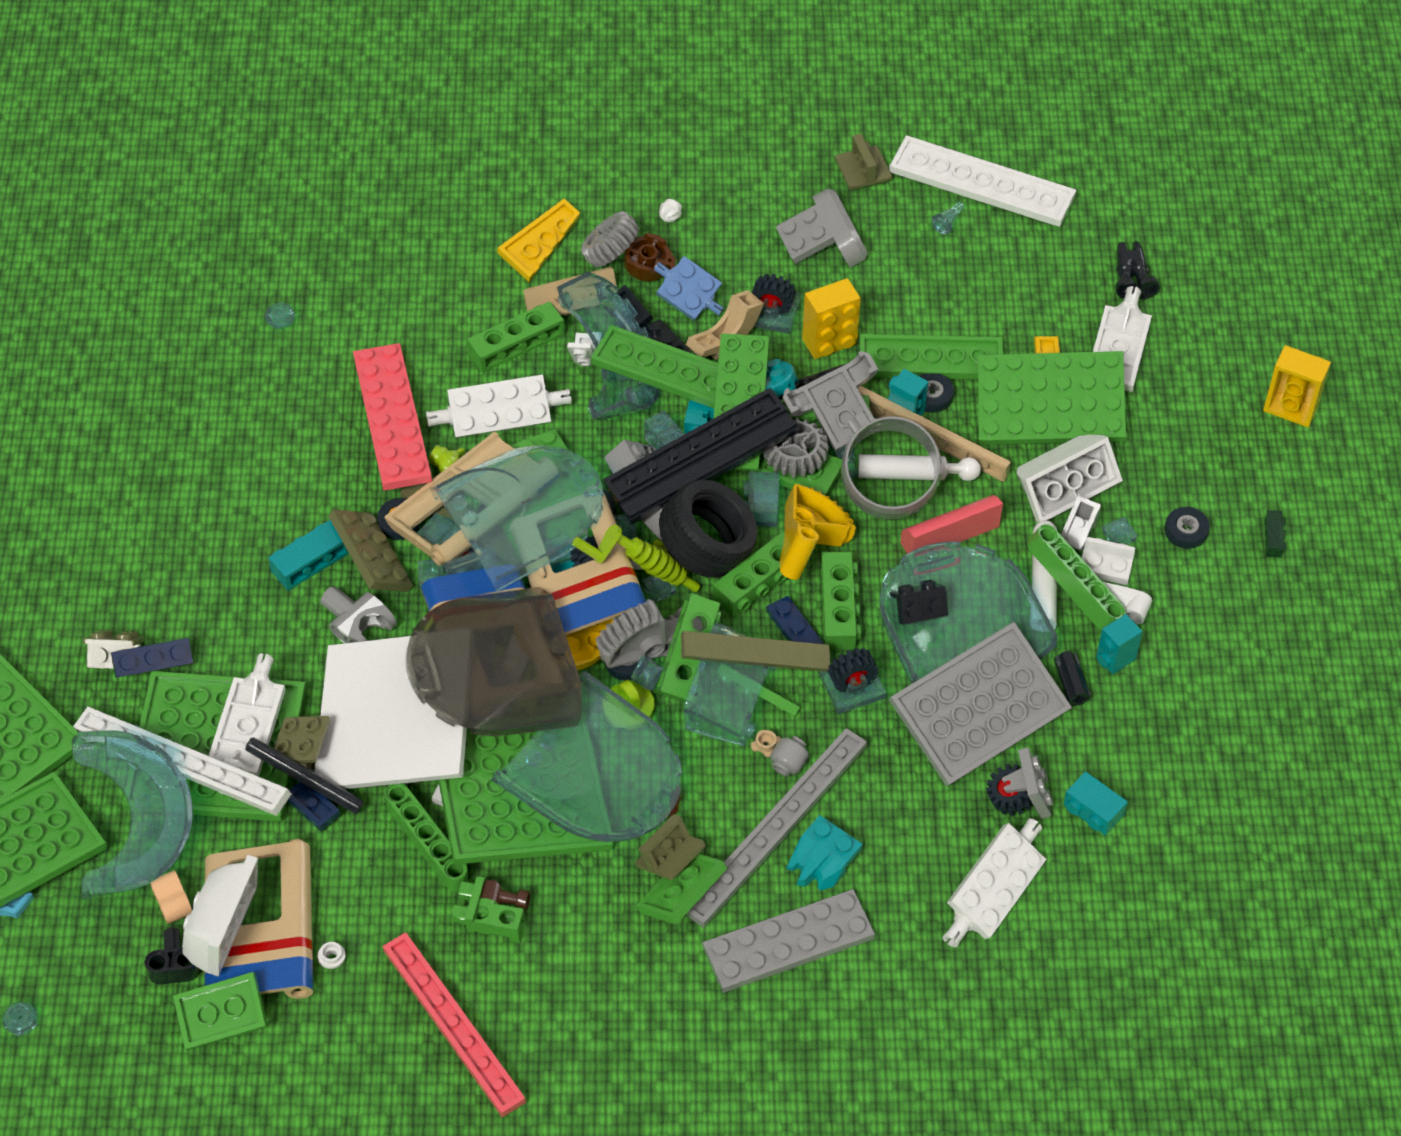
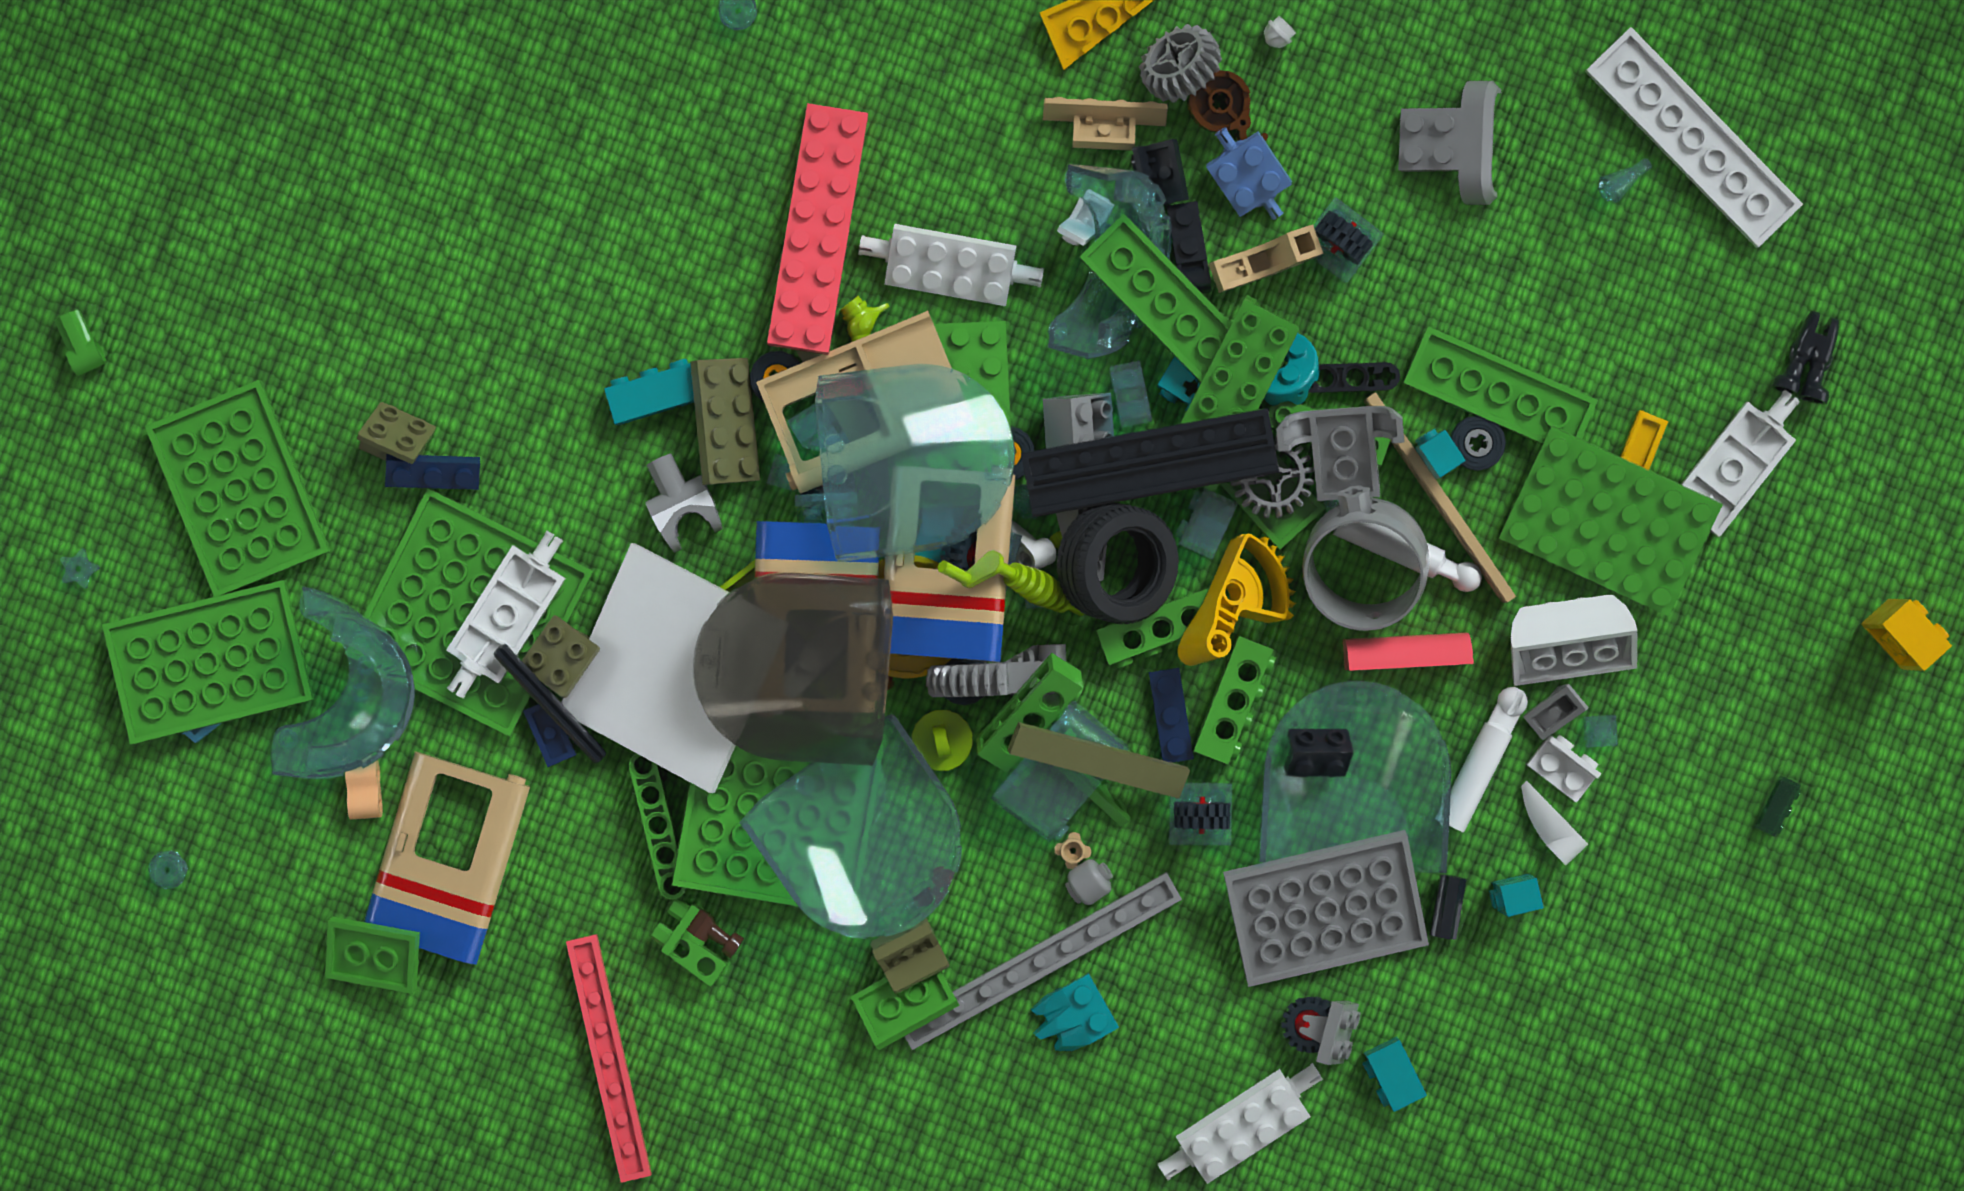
camera: 25 degrees right, 35 degrees up
(172, 959) = (342, 866): black beam -> none
(197, 766) = (419, 641): white plate -> none
(219, 914) = (400, 852): white windscreen -> none
(328, 949) = (501, 927): white plate -> none
(515, 336) = (965, 177): bright green brick -> none
(647, 673) = (975, 716): clear light blue plate -> none
(788, 940) = (995, 1099): light grey plate -> none
(831, 318) = (1396, 308): yellow brick -> none
(862, 165) = (1554, 52): olive bracket -> none
(1075, 576) = (1502, 780): bright green beam -> none
(1189, 517) = (1694, 765): black bush -> none

